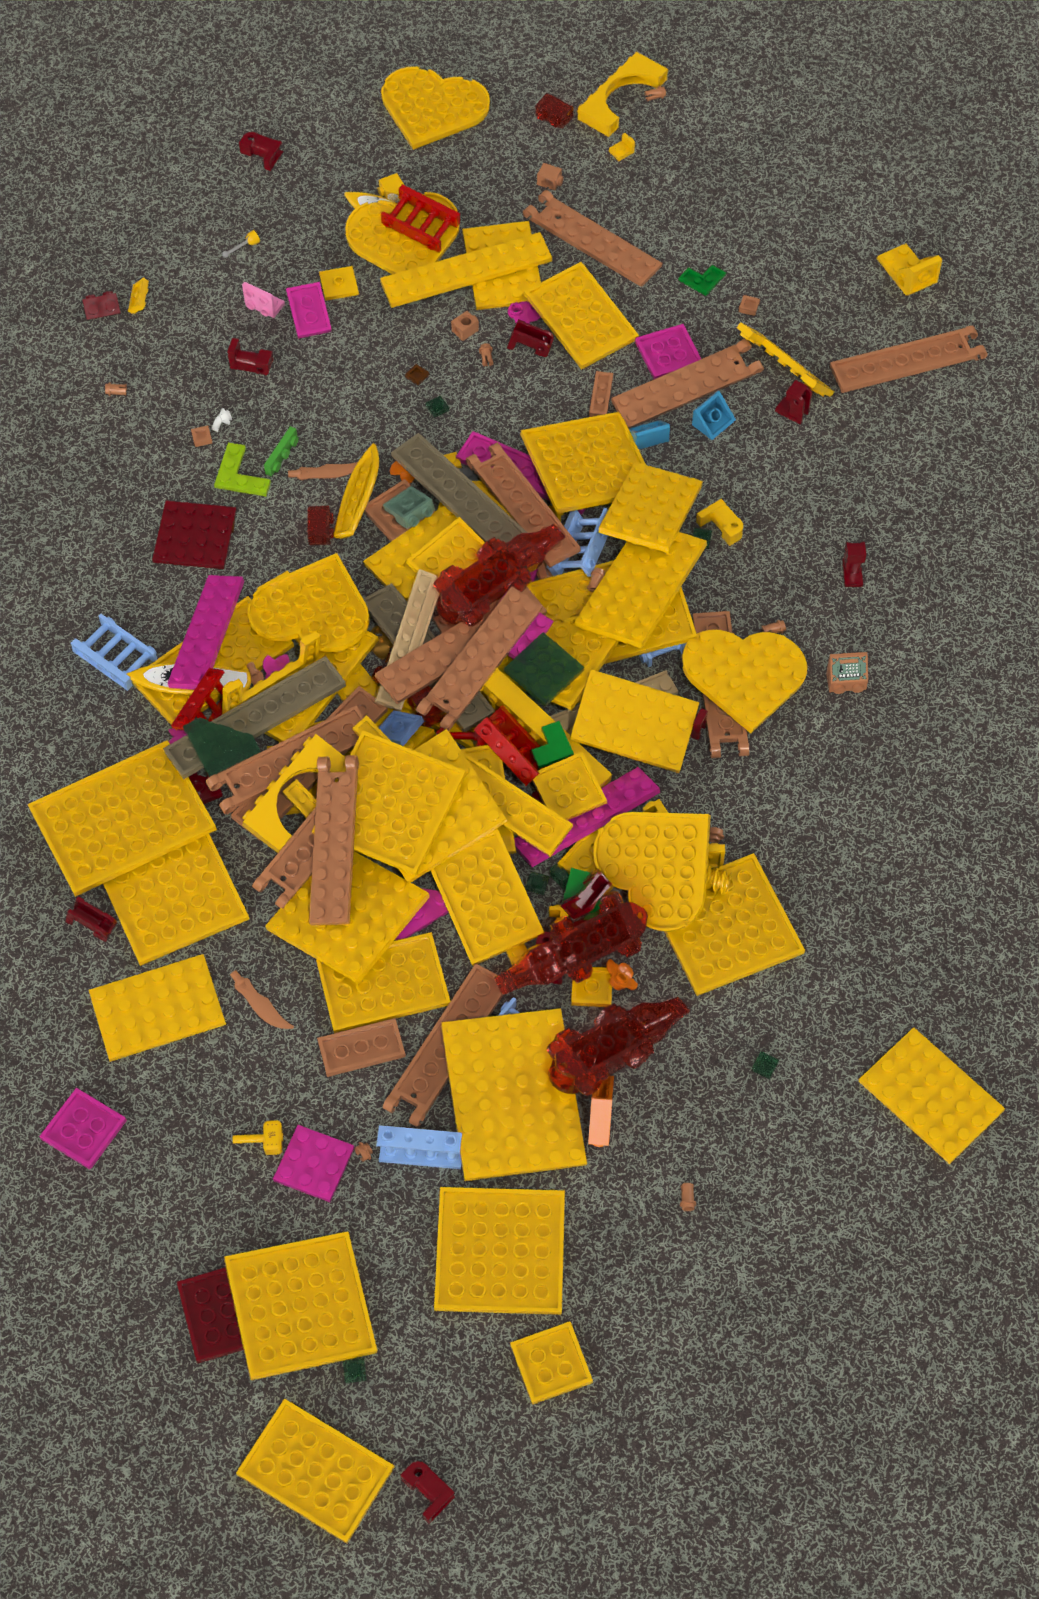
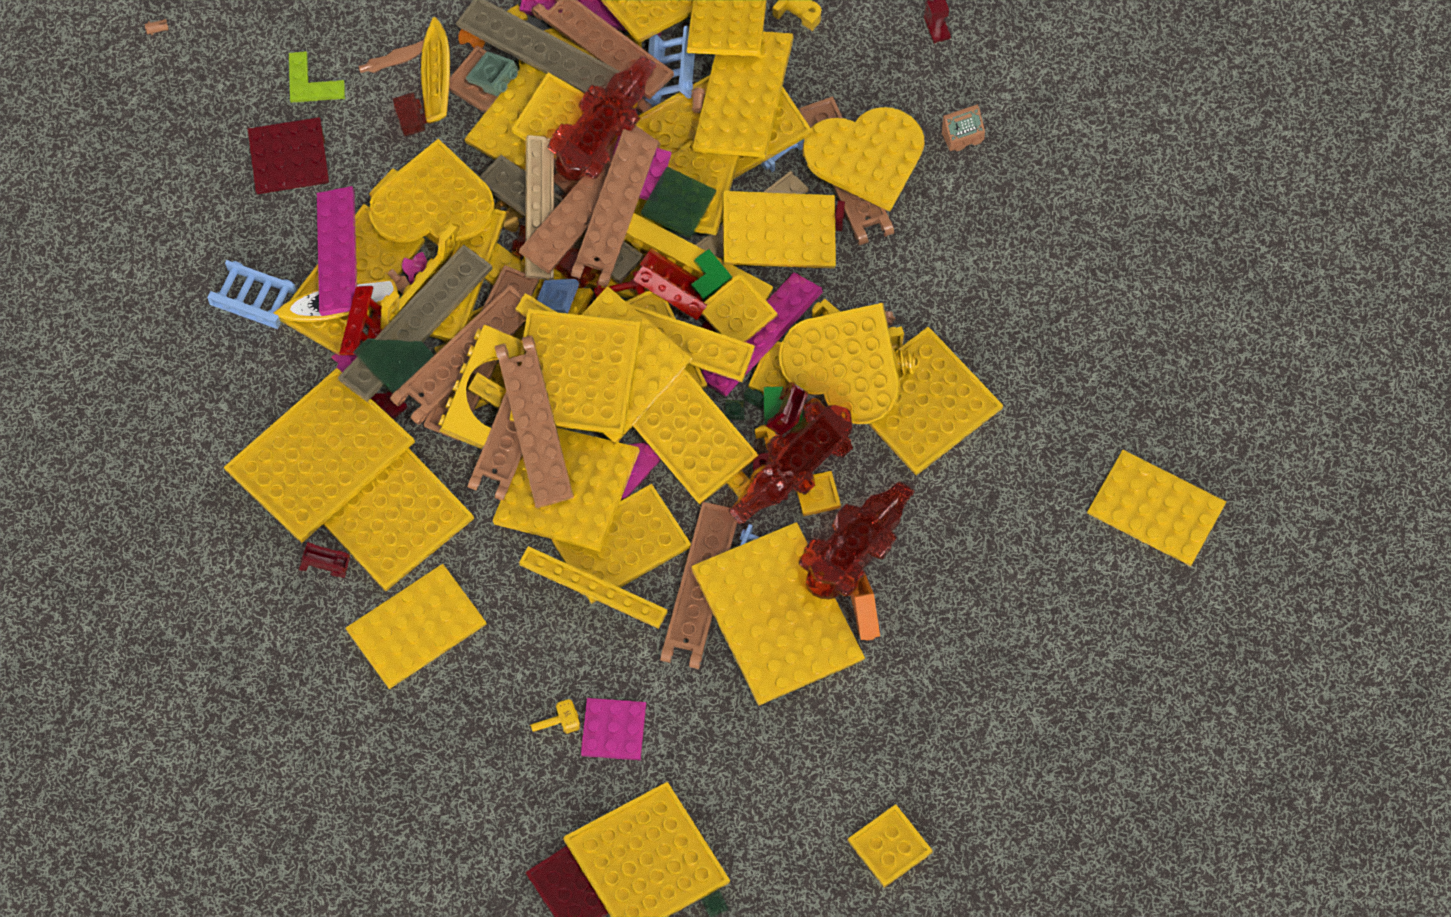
camera: 15 degrees left, 5 degrees up
(83, 1128) = (387, 758): dark pink plate -> none
(201, 436) = (260, 53): nougat plate -> none
(224, 417) = (276, 27): white plate -> none
(259, 1003) = (511, 595): nougat sword -> none
(281, 451) = (346, 49): bright green plate -> none
(340, 1017) = (593, 587): none -> yellow plate
(361, 1047) = (606, 622): nougat plate -> none
(365, 1151) = (657, 703): nougat plate -> none
(419, 1147) = (709, 686): light blue fence -> none
(500, 1251) = (811, 759): yellow plate -> none
(621, 976) = (841, 476): orange plate -> none
(687, 1195) = (967, 667): nougat pin -> none
(703, 534) = (783, 27): clear green plate -> none
(765, 1065) = (999, 522): clear green plate -> none
(777, 627) = (883, 100): nougat pin -> none

